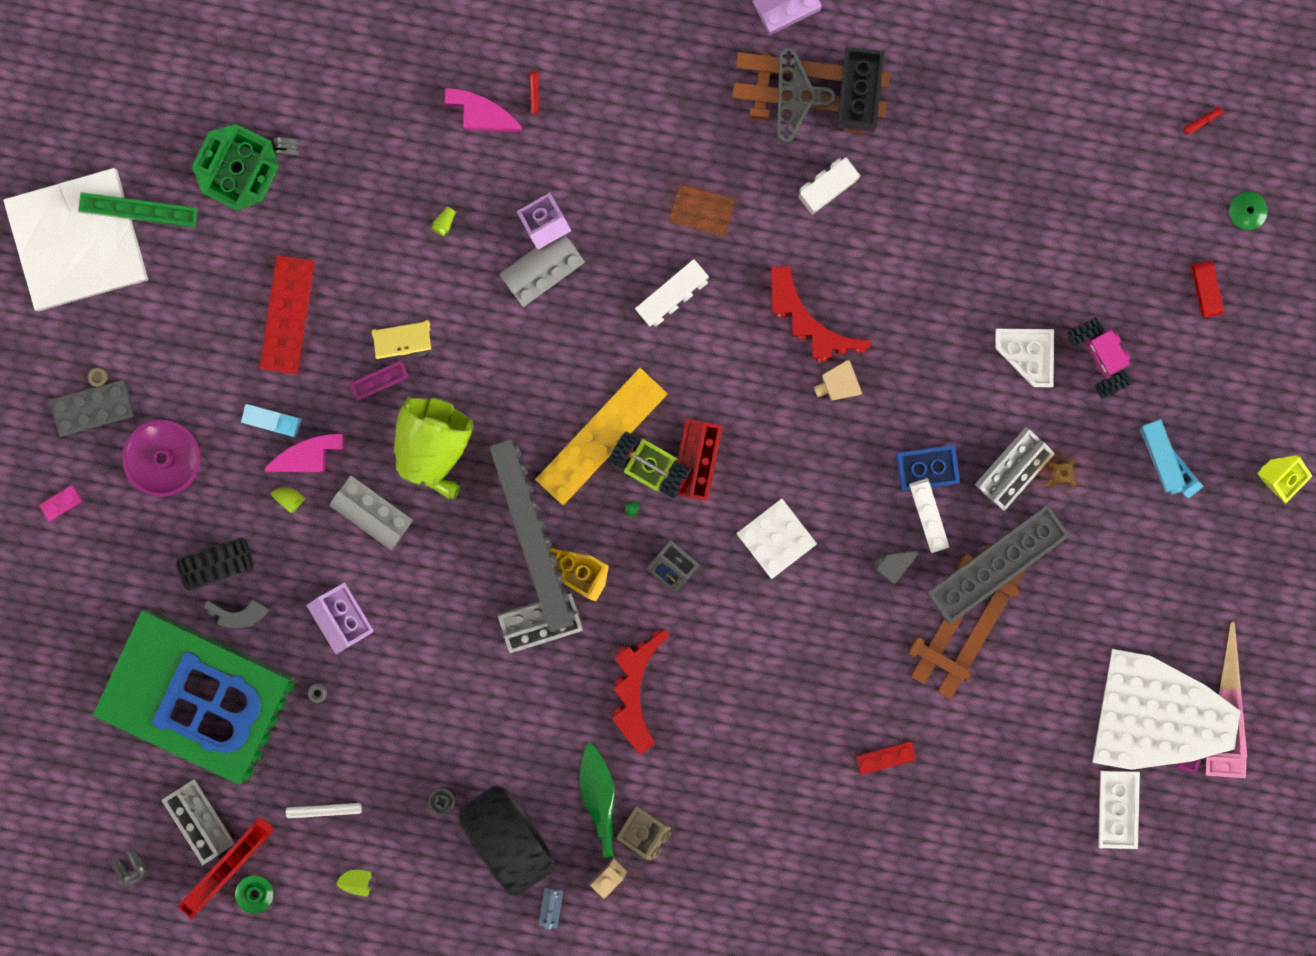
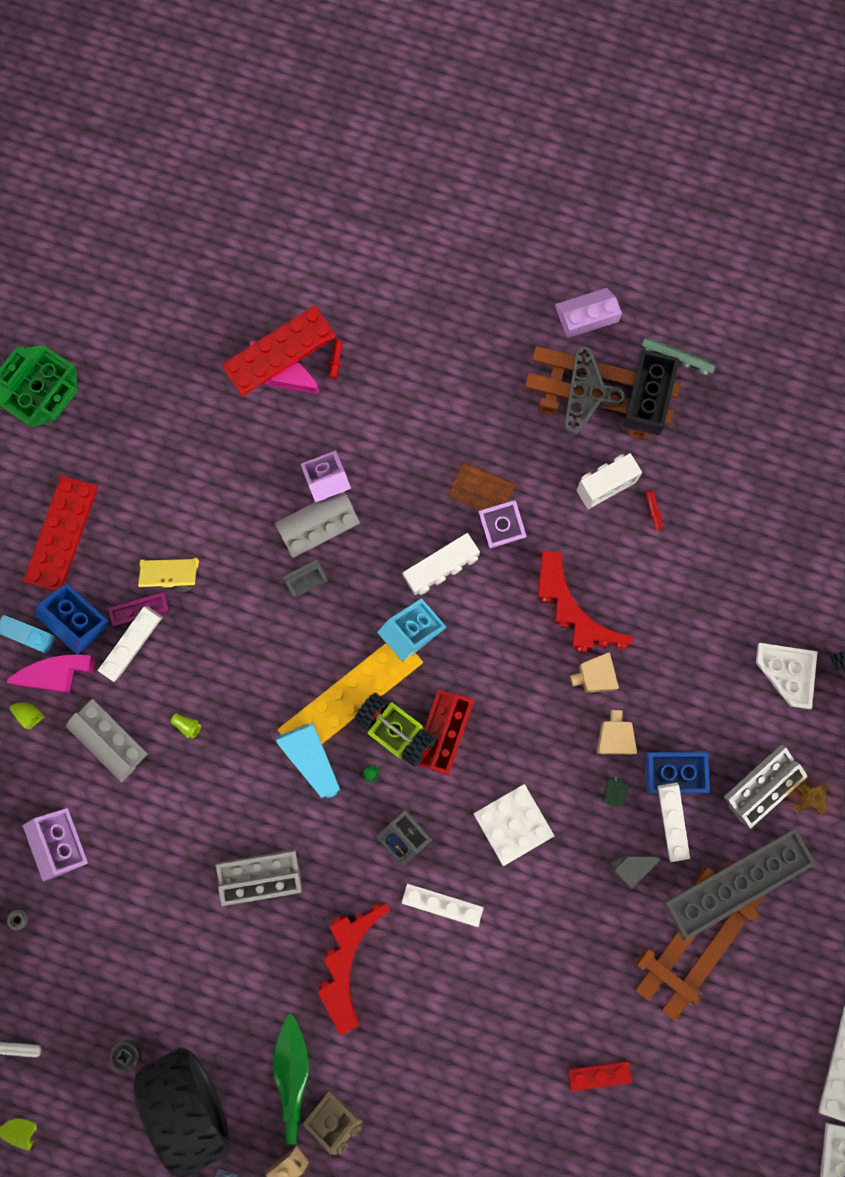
camera: 10 degrees right, 10 degrees down
(286, 147) = (89, 375): dark grey wheel -> none
(316, 400) = (71, 618): none -> blue brick
(378, 416) = (130, 643): none -> white brick
(429, 439) = (175, 672): lime piece -> none
(443, 222) = (228, 466): lime cone -> none
(476, 95) = (278, 350): none -> red plate
(531, 535) = (263, 786): dark grey brick -> none
(539, 327) = (305, 579): none -> dark grey hinge
(570, 501) = (309, 756): none -> medium azure slope
(582, 572) = (303, 828): yellow wedge -> none
(652, 363) = (411, 629): none -> medium azure slope
(718, 623) = (442, 905): none -> white plate
(727, 245) = (502, 524): none -> lavender brick
(865, 440) = (616, 736): none -> tan torso
(870, 494) = (615, 792): none -> clear green brick
(880, 212) = (655, 514): none -> red piece
(884, 41) = (685, 358): none -> sand green plate

